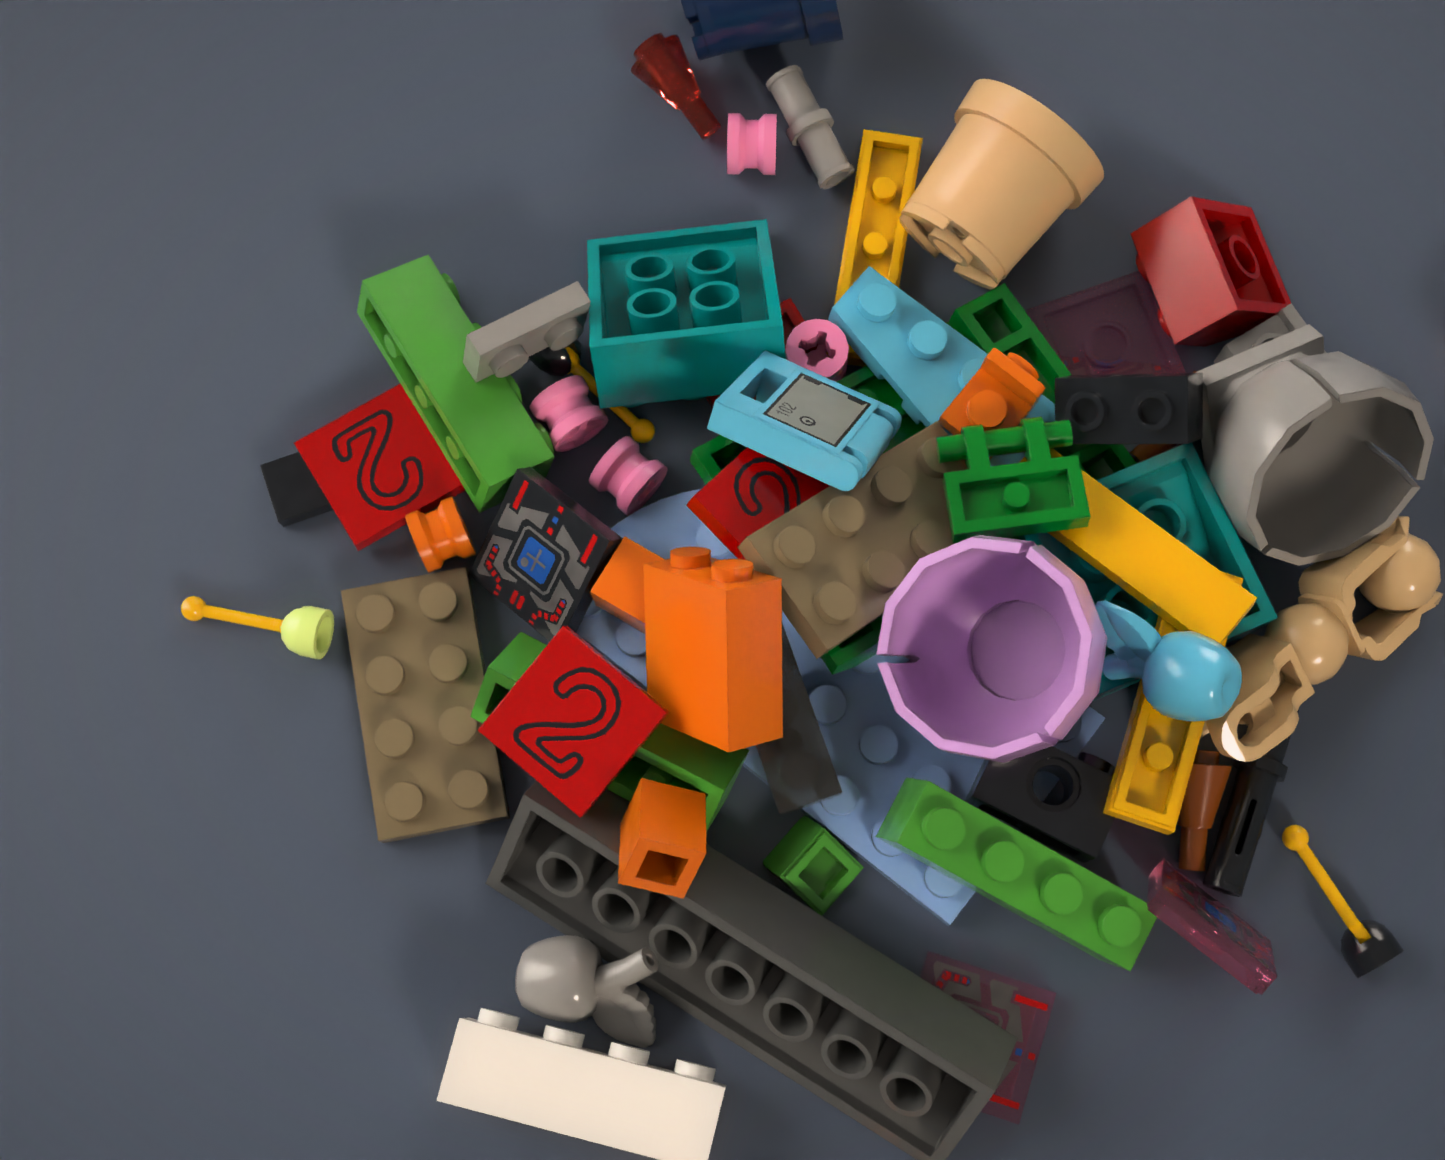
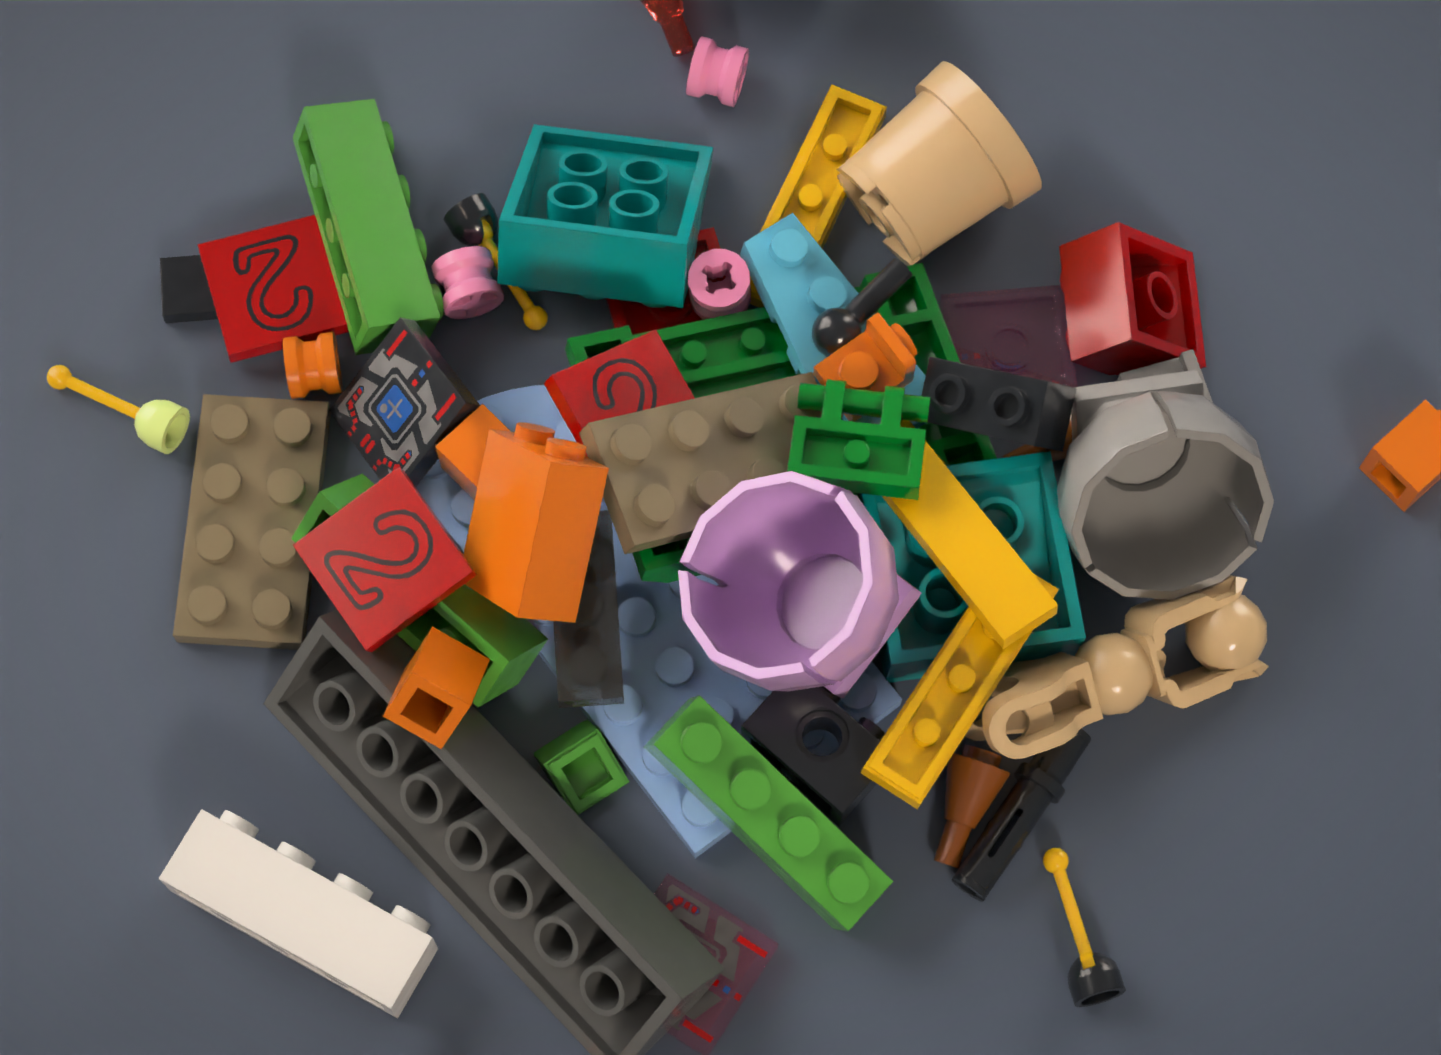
camera: 10 degrees right, 5 degrees down
(509, 341) = (427, 196): light grey plate -> none
(568, 984) = (317, 810): light grey piece -> none
(627, 475) = (507, 354): bright pink wheel -> none
(805, 421) = (680, 336): medium azure container -> none
(810, 127) = (779, 69): light grey pin -> none
(953, 369) = (841, 325): none -> black bar
(1180, 672) = (961, 652): medium azure piece -> none
(1211, 927) = (938, 909): clear pink tile -> none

